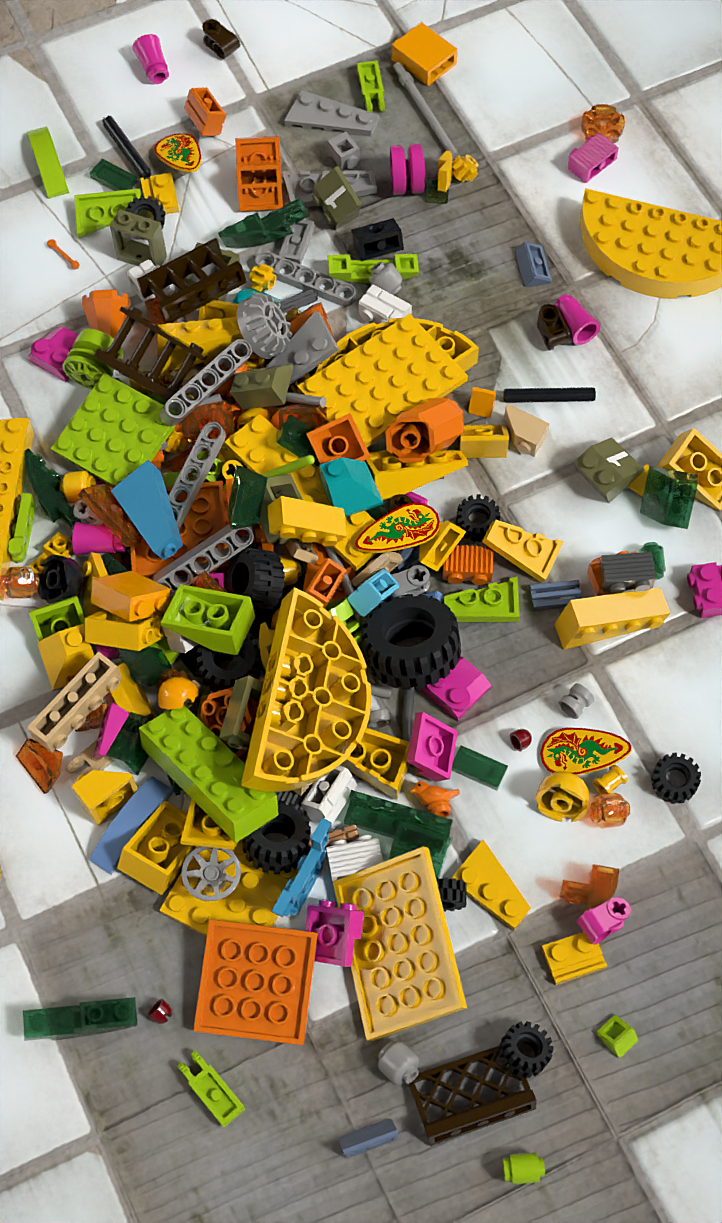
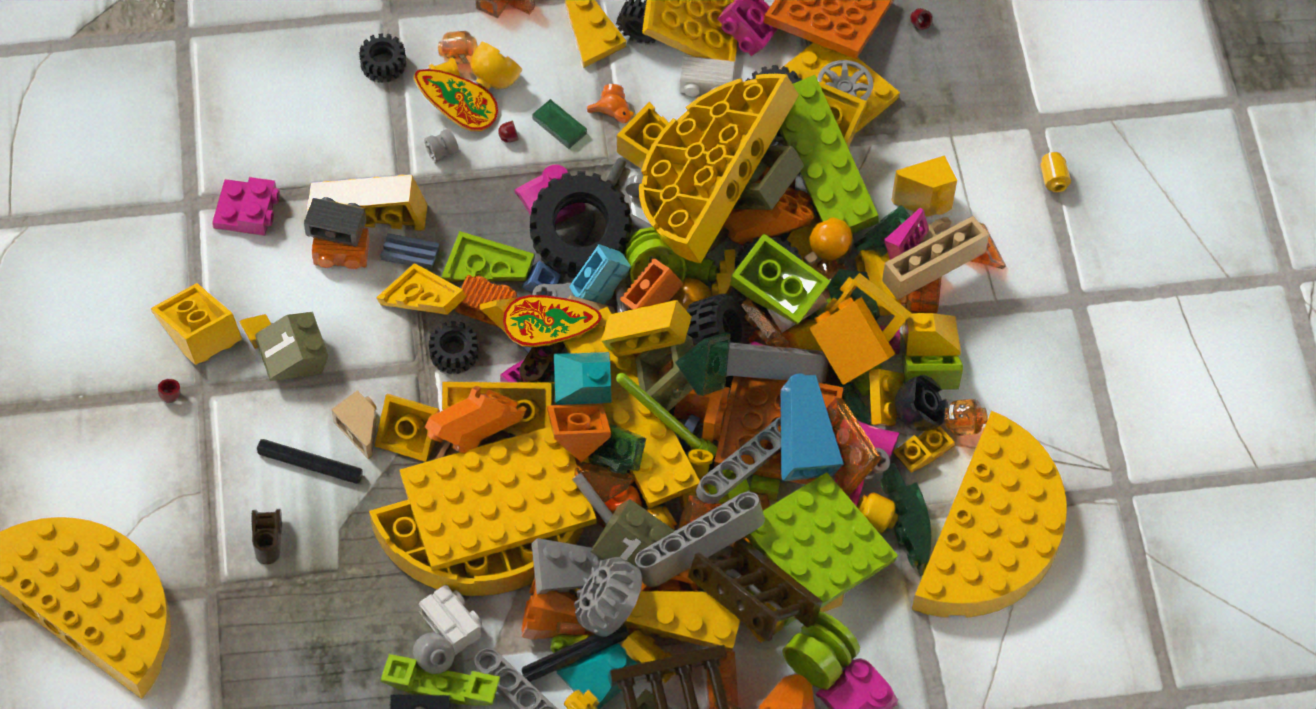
camera: 165 degrees left, 5 degrees down
(22, 529) = (950, 486): lime hinge -> none
(80, 1020) = (985, 29): clear green slope -> none
(128, 822) = (881, 184): medium blue slope -> none
(155, 851) = (885, 137): yellow slope -> none
(309, 867) = (770, 51): dark azure wing -> none
(384, 816) = (642, 90): clear green fence -> none
(413, 836) = (644, 59): clear green slope -> none
(432, 747) = (599, 132): dark pink plate -> none
(482, 402) = (387, 474): light orange slope -> none
(533, 265) = (245, 631): sand blue slope -> none
(580, 322) = (235, 532): dark pink plant -> none
(658, 557) = (296, 249): clear green brick -> none
(669, 496) = (246, 288): clear green slope -> none
(687, 406) = (169, 390): none -> dark red hinge

